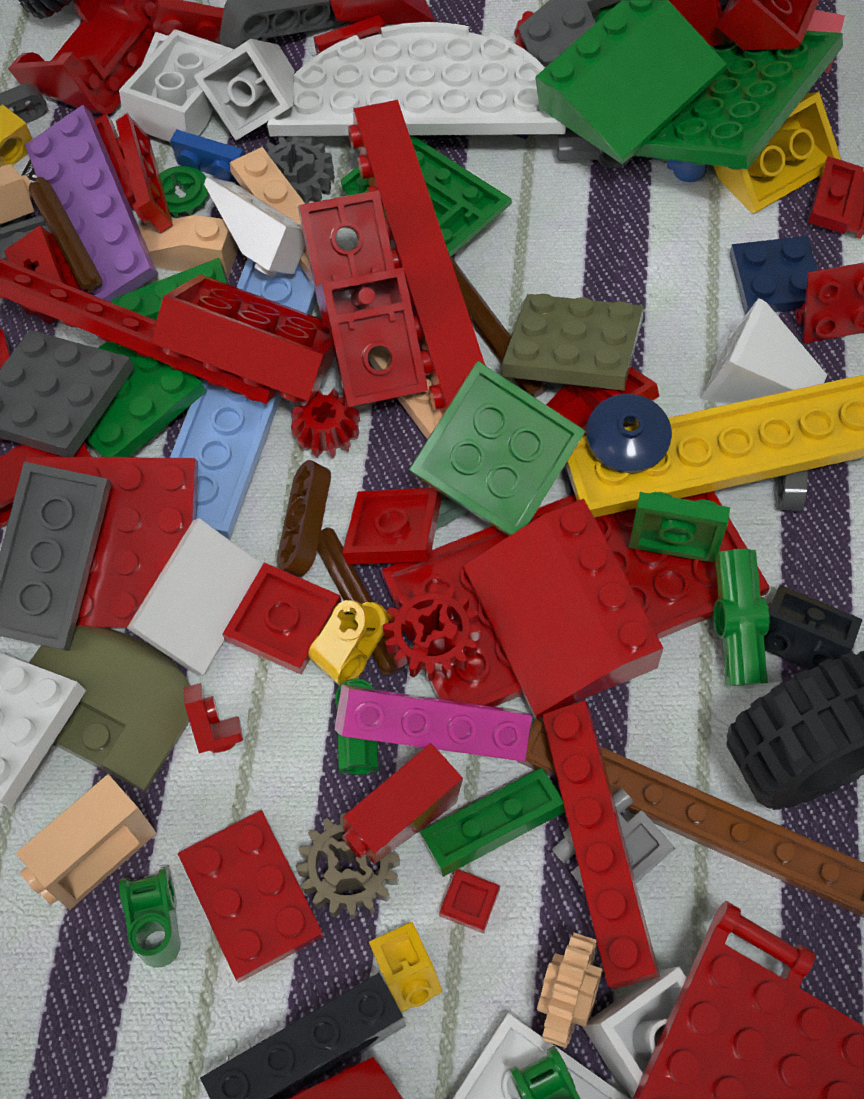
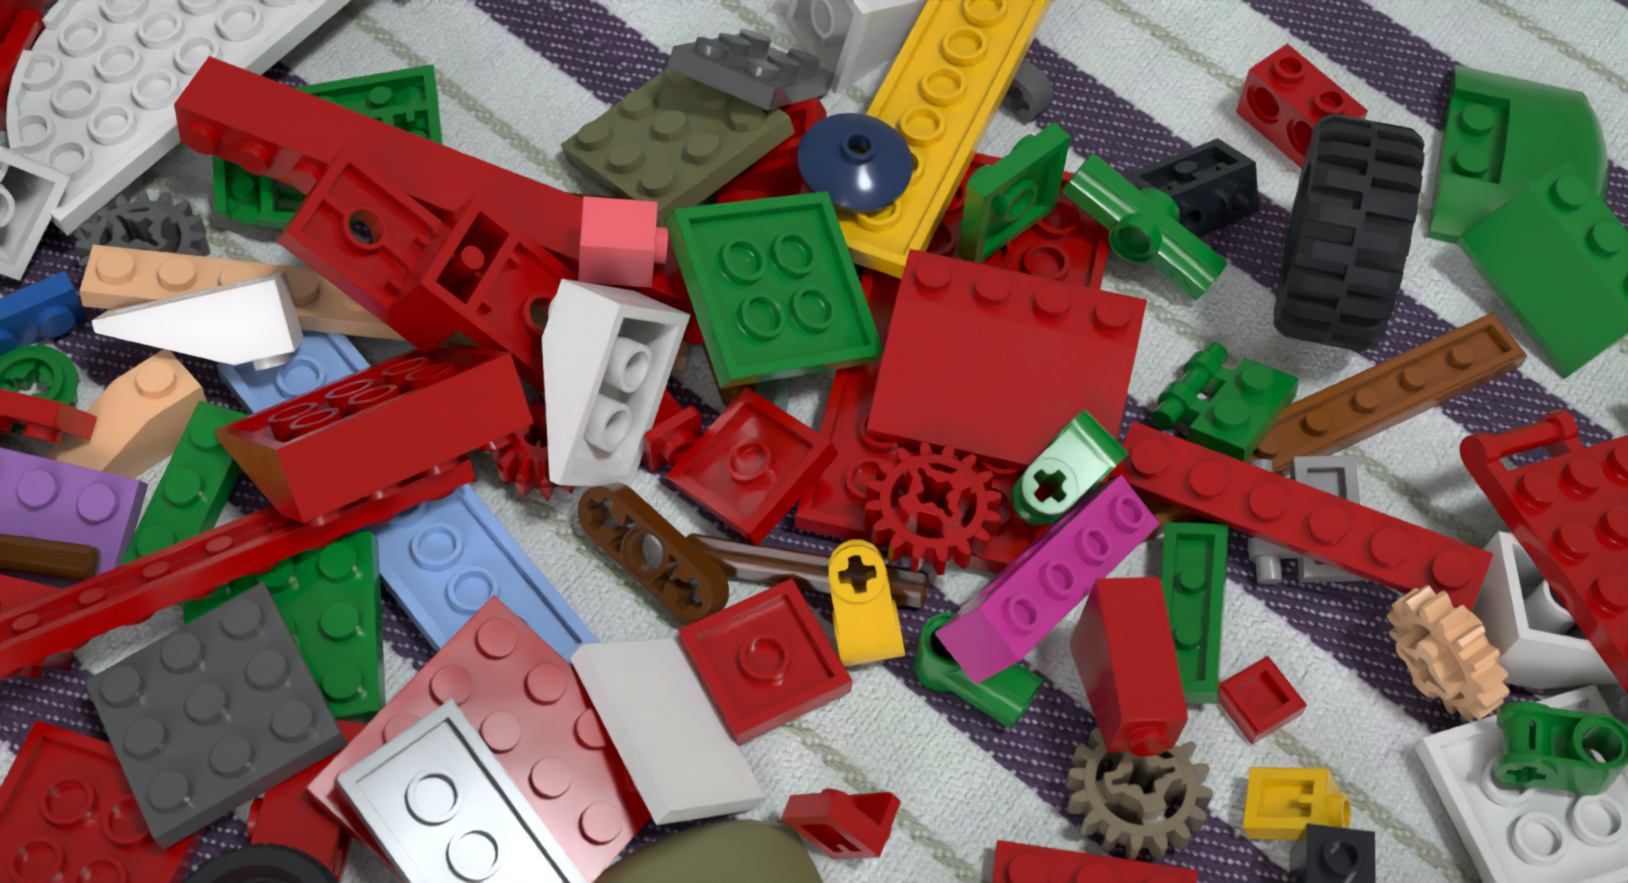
camera: 60 degrees left, 5 degrees down
(365, 413) = (604, 379): none -> white slope
(387, 466) = (671, 434): none -> red bracket
(445, 353) = (620, 242): none -> coral brick
(520, 684) = (1071, 466): none -> piece
(650, 341) = (752, 69): none -> dark grey plate
(660, 761) = (1240, 412): none -> green plate

